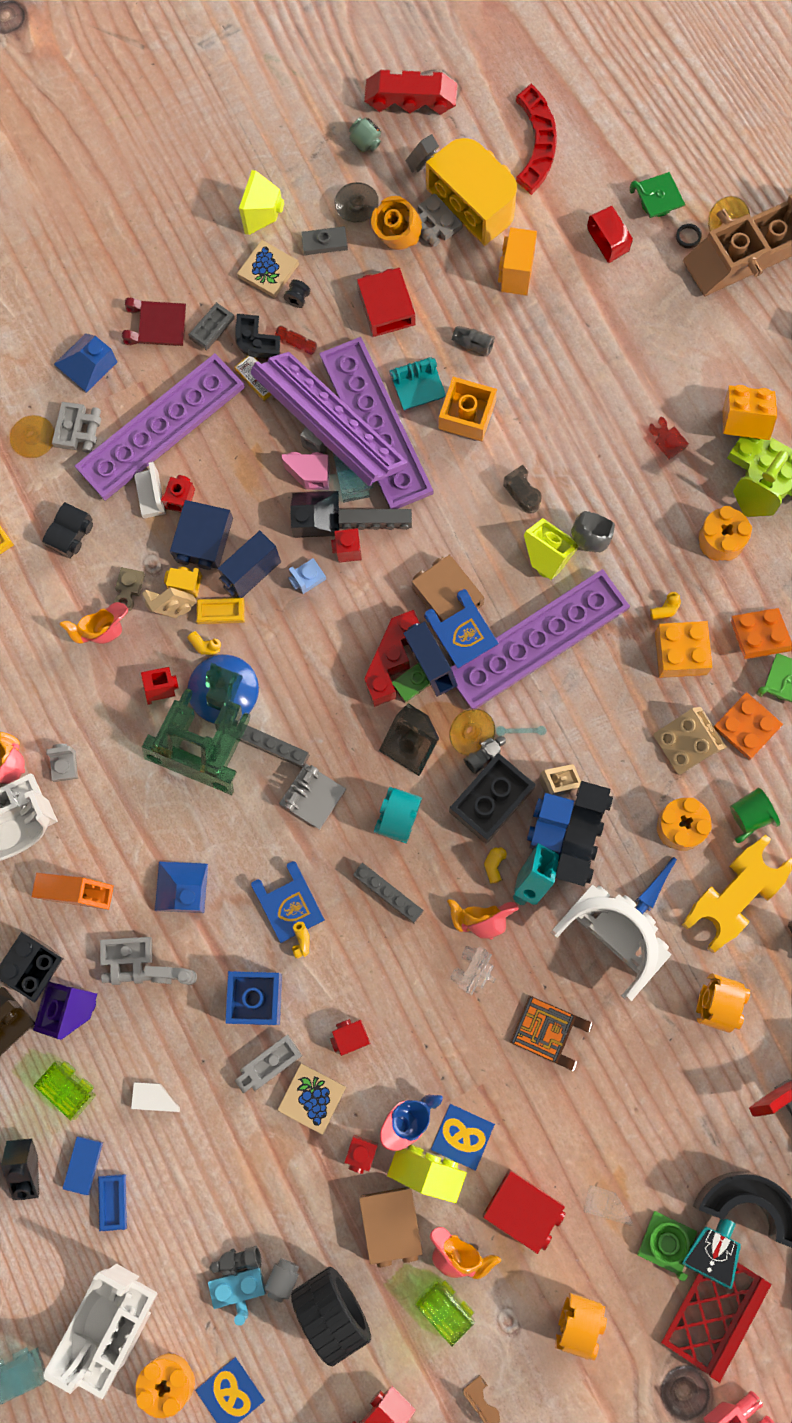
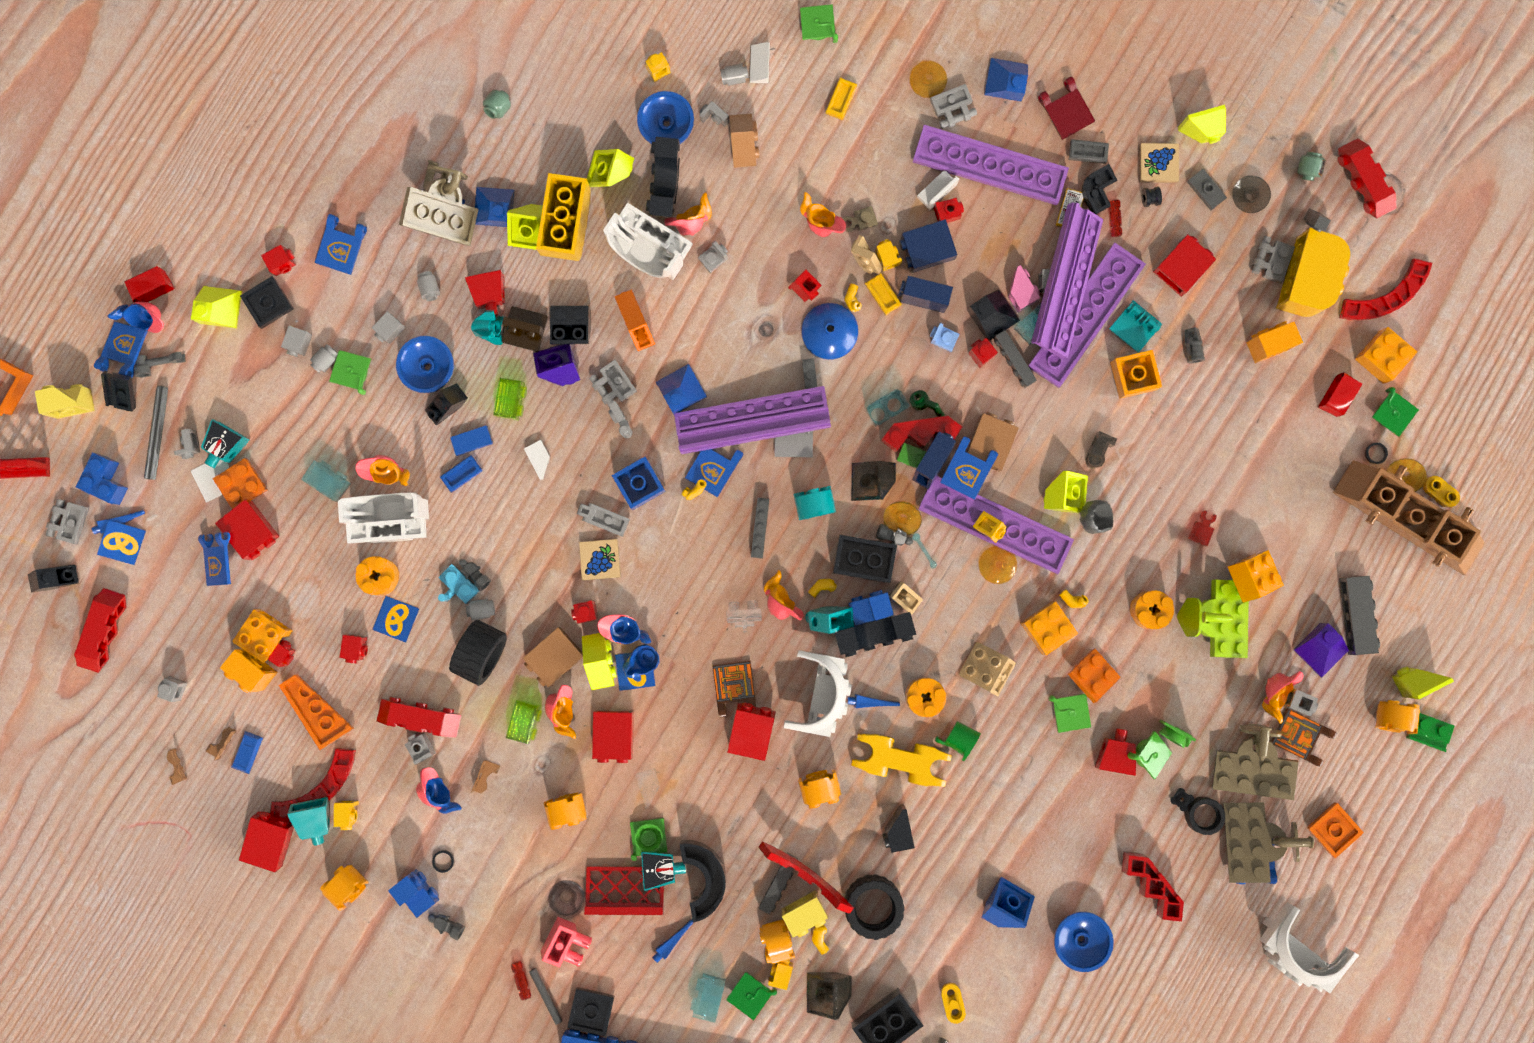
camera: 55 degrees right, 10 degrees up
(46, 1298) = (382, 470): none -> light orange hair
(67, 530) = (875, 151): black brick -> none
(216, 753) = (780, 356): clear green container -> none
(264, 829) = (752, 420): none -> medium lavender plate
(335, 659) = (897, 394): none -> clear light blue piece
(349, 1037) = (652, 560): red brick -> none
(362, 635) = (925, 402): none -> dark green plate
(396, 223) = (1260, 233): light orange brick -> none
(458, 1121) = (641, 662): none -> blue hair
(537, 644) = (990, 526): none -> yellow bracket
(578, 674) = (988, 567): none -> clear yellow dish
(596, 171) = (1386, 355): none -> light orange brick
(612, 1042) = (751, 731): none -> red brick
(748, 726) = (1022, 702): orange plate -> none
(764, 197) = (1442, 492): none -> yellow plate

